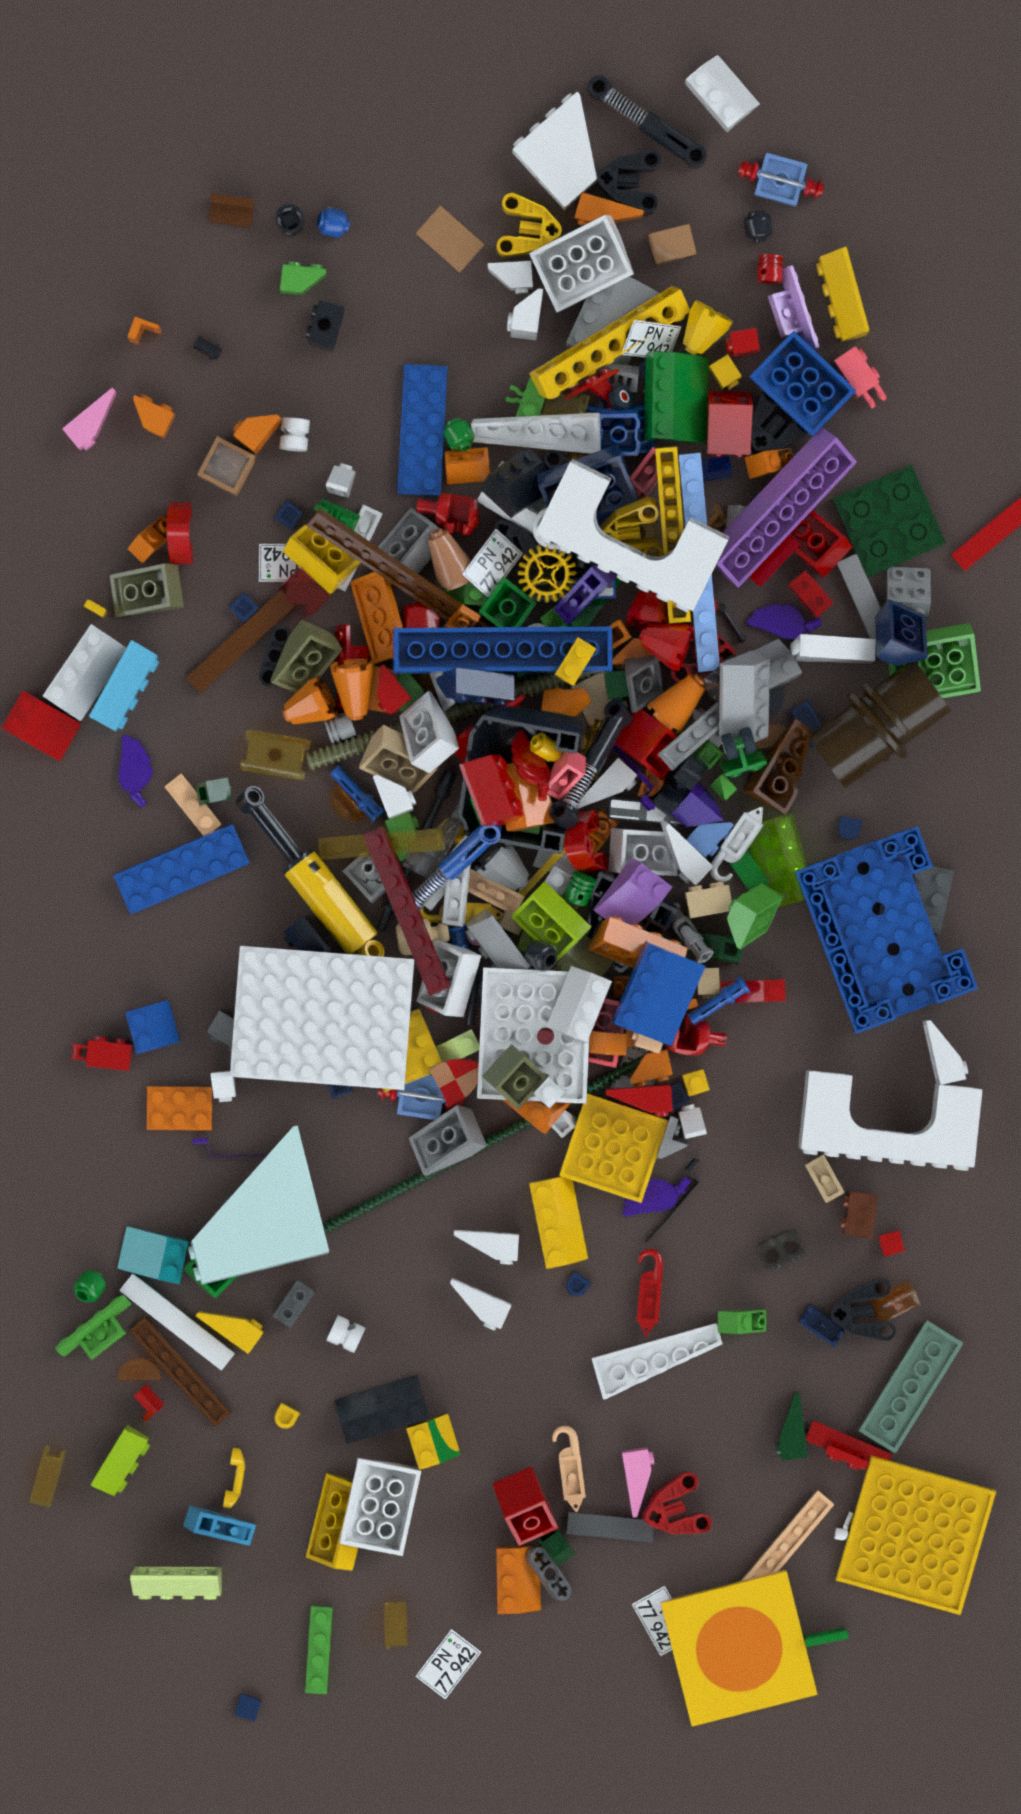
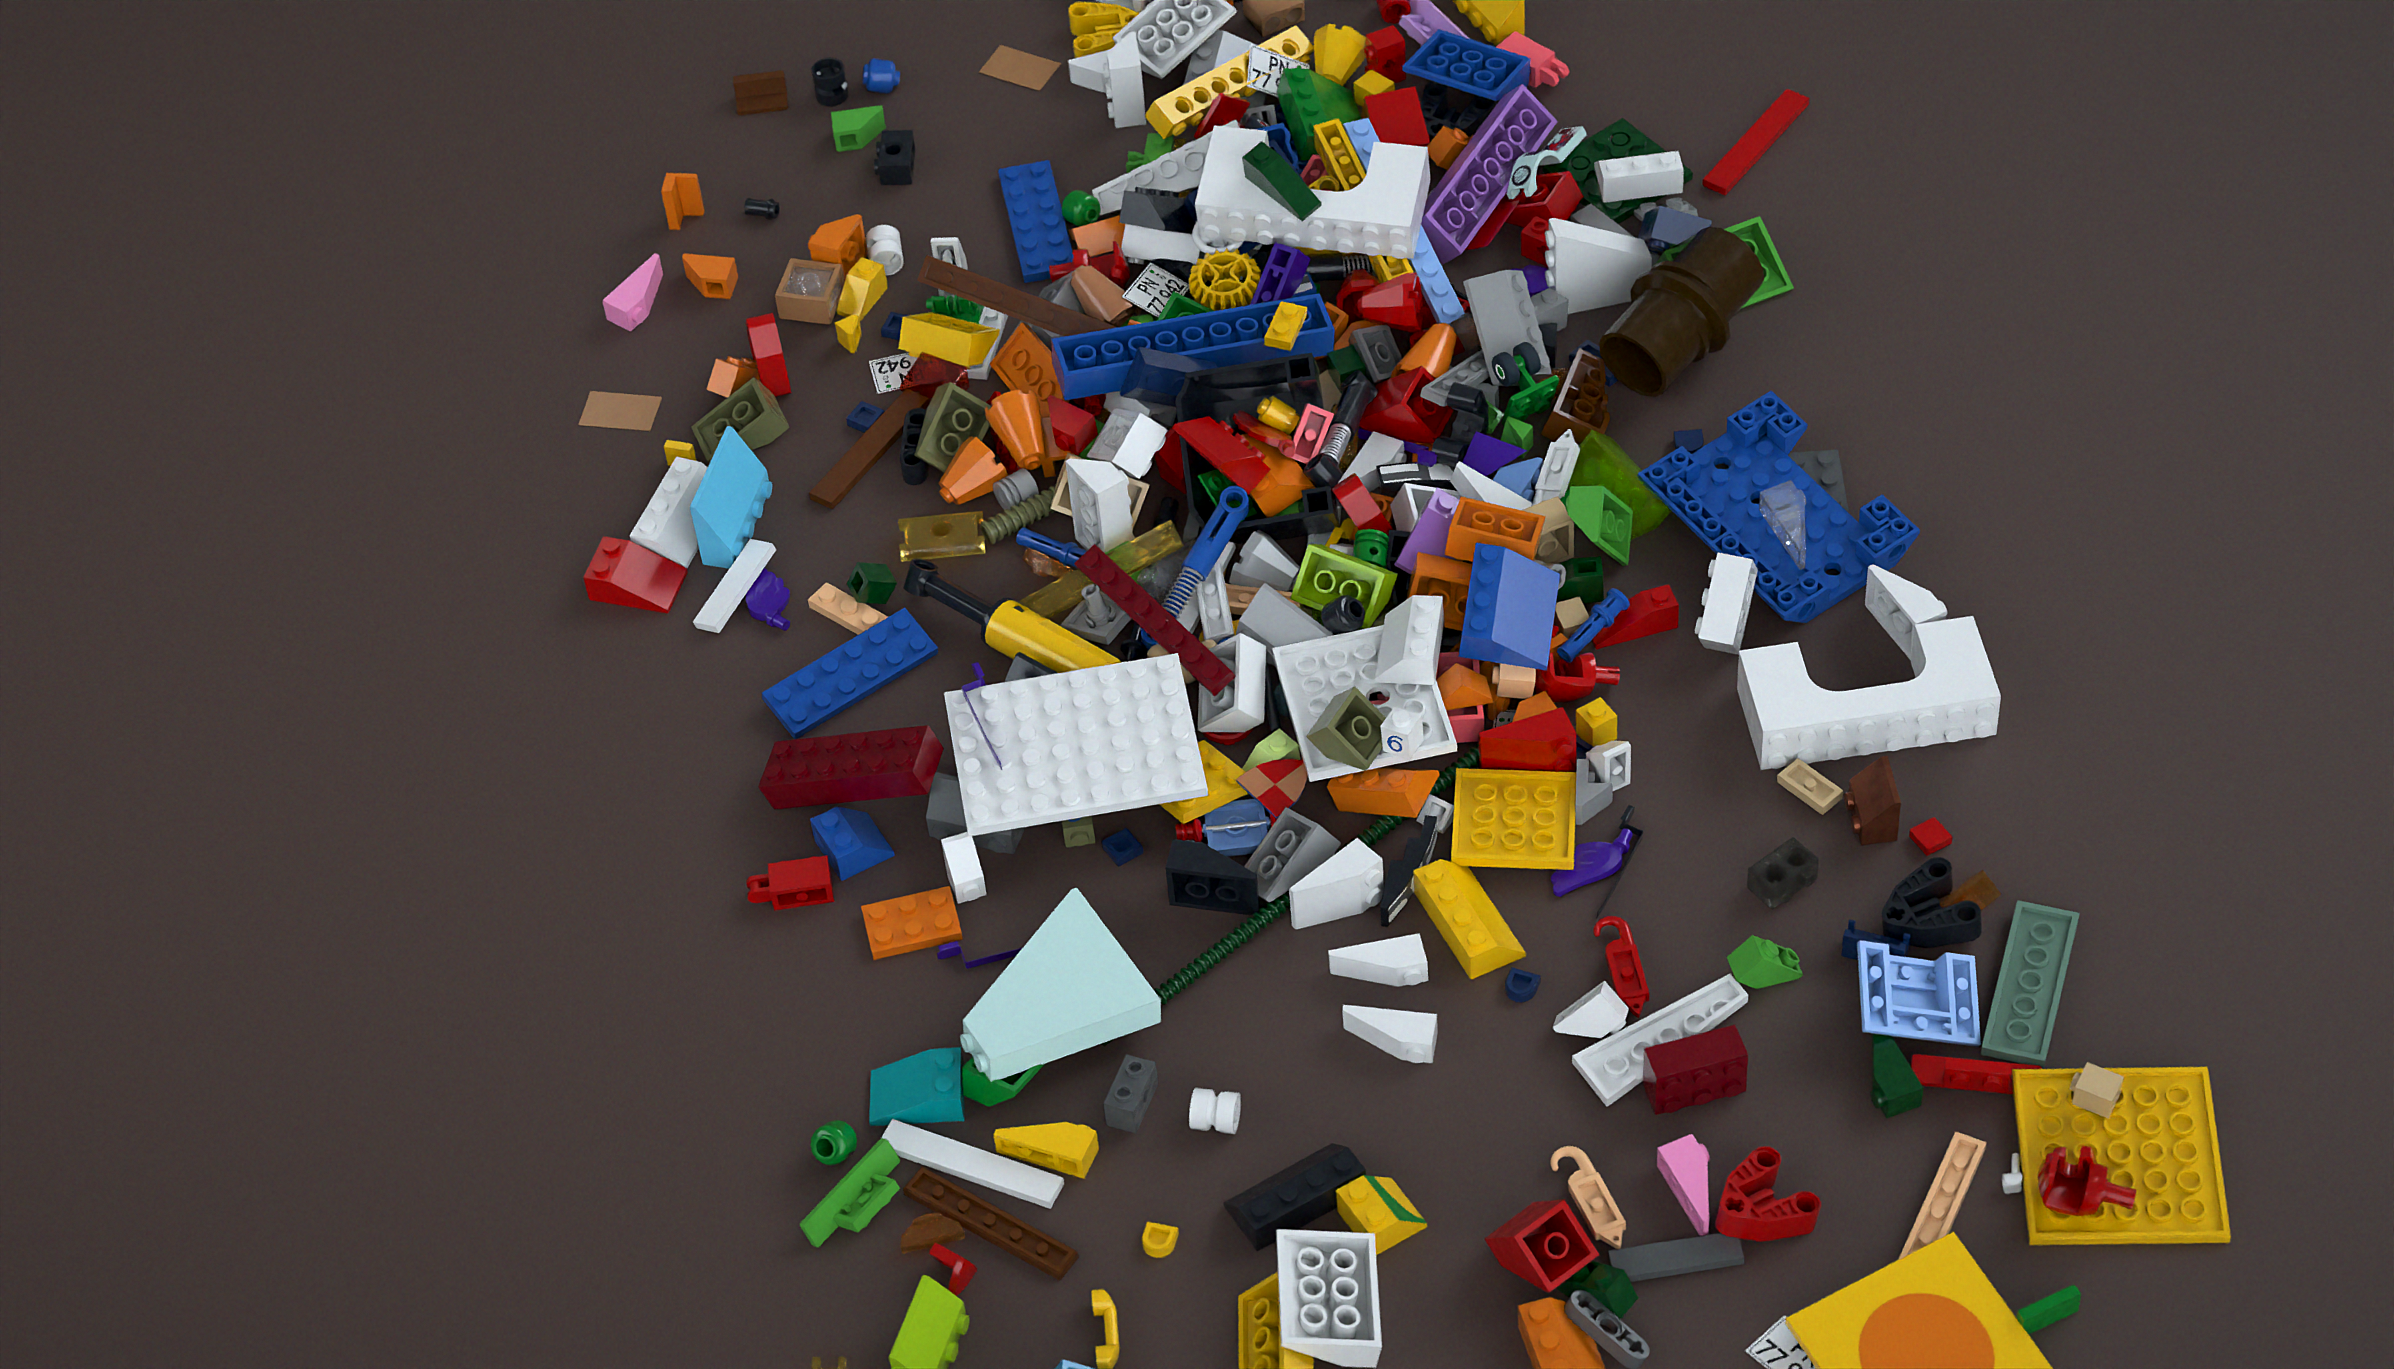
camera: 10 degrees left, 40 degrees down
(58, 537) = (620, 411): none -> medium nougat sticker
(113, 757) = (734, 586): none -> white tile
(162, 980) = (851, 767): none -> dark red brick
(249, 517) = (849, 332): none -> yellow slope
(267, 472) = (862, 288): none -> yellow slope
(268, 948) = (973, 685): none -> dark purple piece
(385, 1143) = (1209, 880): none -> black slope
(480, 1178) = (1338, 887): none -> white slope
(523, 1176) = (1400, 878): none -> black slope
(605, 544) = (1279, 181): none -> dark green slope
(614, 1331) = (1593, 1014): none -> white slope
(666, 1401) = (1695, 1069): none -> dark red brick
(670, 918) = (1492, 525): none -> orange slope
(817, 1018) = (1726, 603): none -> white brick
(831, 1383) = (1918, 996): none -> light blue slope
(840, 498) = (1555, 152): none -> light aqua piece
(877, 1564) = (2079, 1187): none -> red piece
(889, 945) = (1785, 513): none -> clear slope
(901, 543) = (1640, 176): none -> white slope
(915, 1495) = (2096, 1089): none -> tan brick

